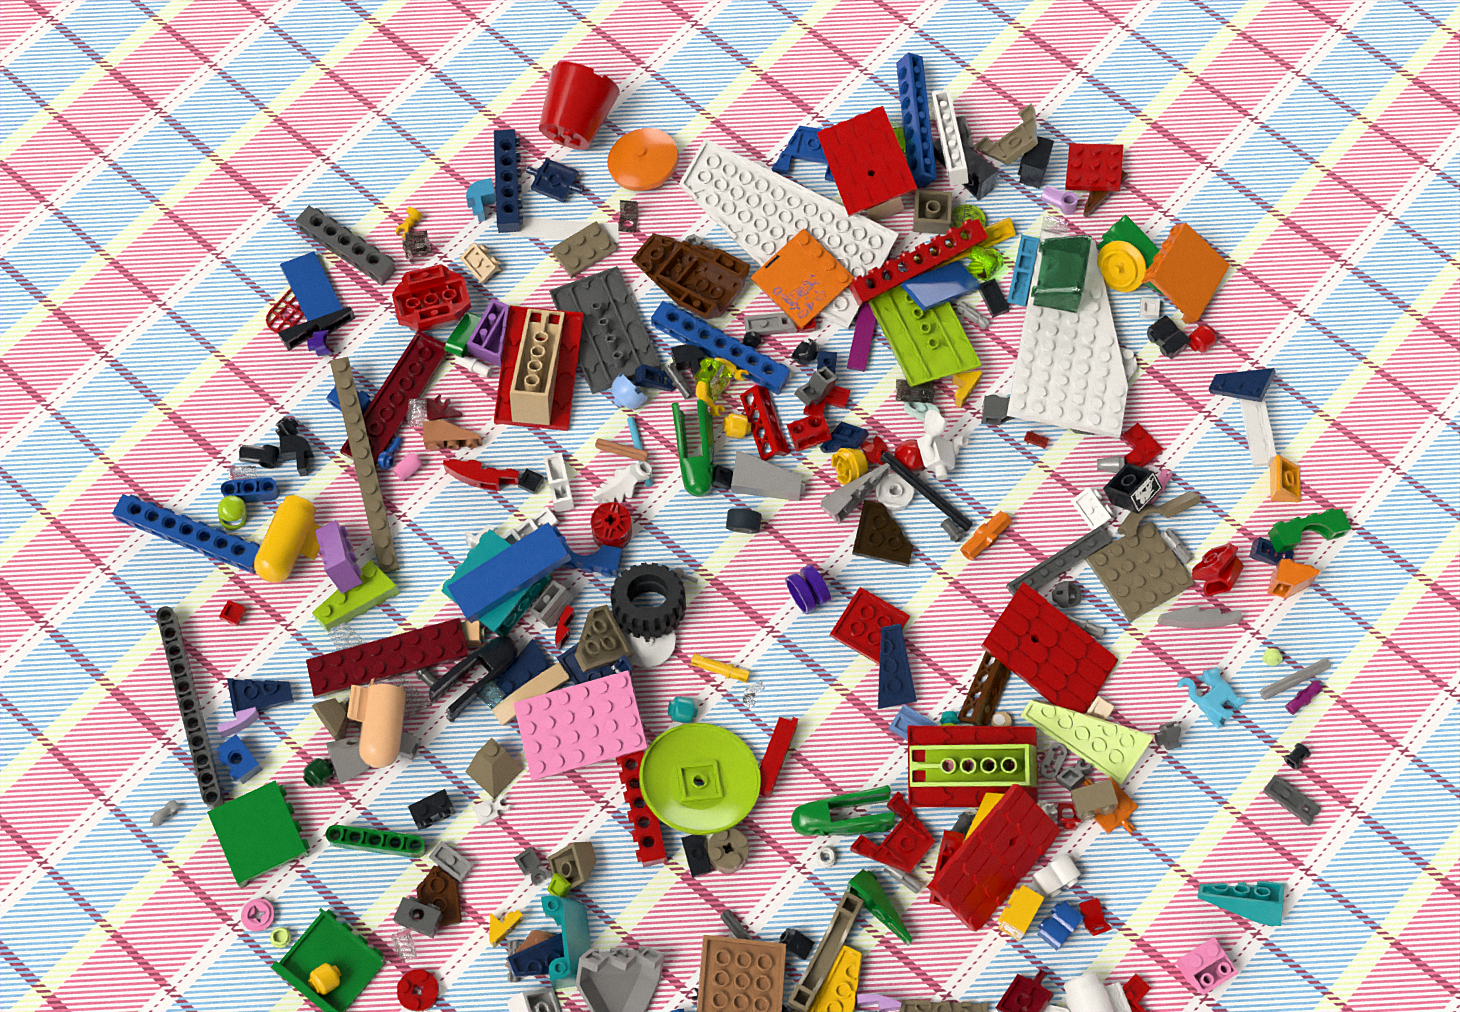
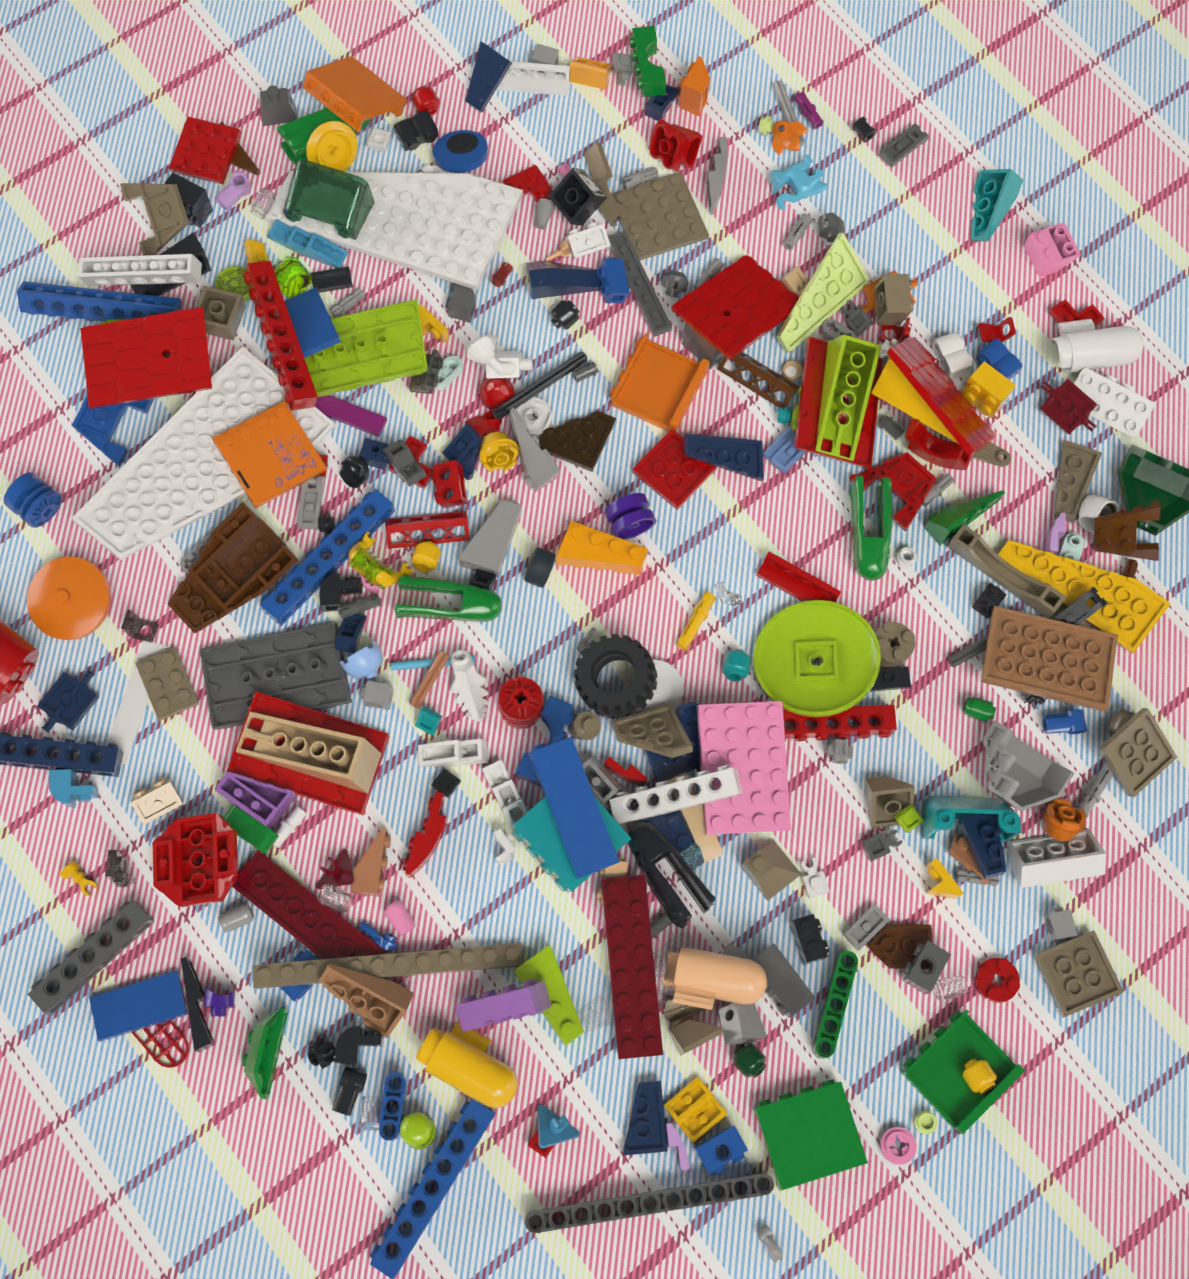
camera: 85 degrees left, 5 degrees up
(243, 619) = (553, 1129): none -> dark azure piece
(271, 735) = (695, 1110): none -> yellow slope
(283, 386) = (264, 1051): none -> green wedge
(335, 459) = (373, 998): none -> medium nougat wedge
(390, 788) = (783, 982): none -> dark grey slope
(391, 342) = (236, 917): none -> light grey piece
(542, 668) = (729, 787): none -> white brick
(584, 456) = (428, 720): none -> teal plate
(600, 411) = (377, 695): none -> light grey brick
(600, 586) = (585, 726): none -> dark tan piece
(613, 815) = (840, 751): none -> light grey gear
(679, 944) = (979, 709): none -> green brick
(722, 111) = (32, 500): none -> blue wheel
(772, 561) = (599, 550): none -> light orange wedge
(956, 598) = (658, 384): none -> orange panel
(958, 931) = (990, 455): none -> dark tan piece
(986, 535) = (597, 342): orange piece -> none
(1006, 501) = (564, 315): none -> black head
(1046, 491) = (560, 279): none -> dark blue wedge
(1051, 539) = (613, 280): none -> blue brick
(1076, 489) = (564, 251): none -> light nougat hand
(1156, 215) = (277, 106): none -> dark grey torso
(1156, 378) = (460, 151): none -> blue piece
(1157, 705) = (797, 231): none -> light grey pin
(1262, 679) = (789, 137): none -> orange plate
(1283, 435) = (544, 55): none -> light grey brick
(1298, 508) = (623, 66): none -> light grey plate

